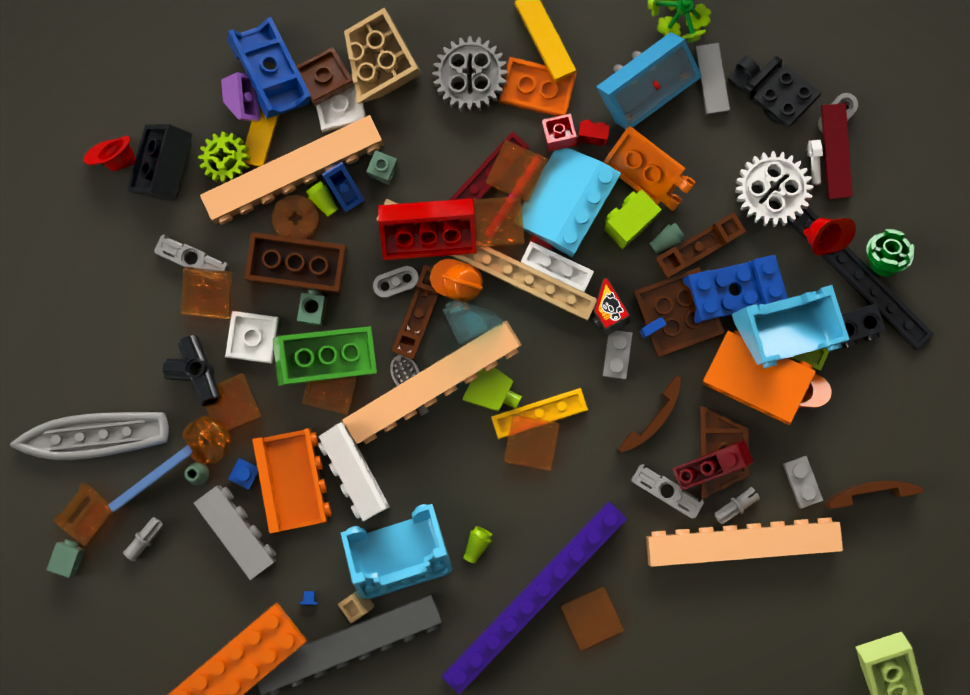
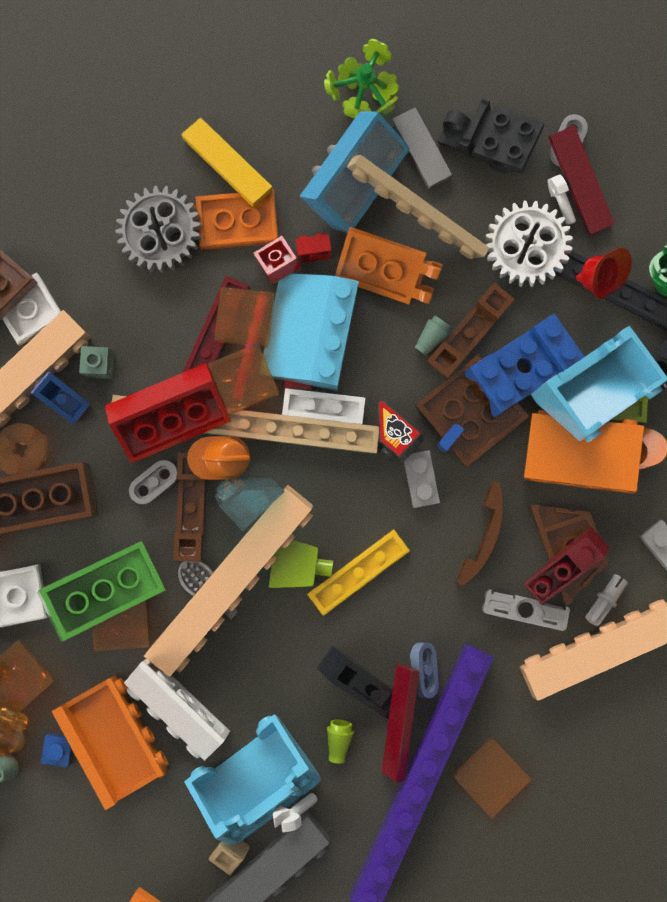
camera: 20 degrees left, 0 degrees up
(235, 532) = (68, 819): light grey brick -> none
(309, 598) = (174, 864): blue piece -> none
(312, 318) = (80, 551): sand green brick -> none
(322, 198) = (42, 417): lime cone -> none
(378, 57) = (52, 243): tan wedge -> none
(418, 591) = (290, 818): none -> white bar
(510, 503) = (356, 681): none -> black slope
(531, 442) = (360, 607): clear orange tile -> none
(532, 546) = (400, 722): none -> dark red tile
(566, 511) = (424, 659): none -> sand blue plate
(632, 218) = (387, 327): lime brick -> none
(685, 122) = (411, 203): none -> tan plate

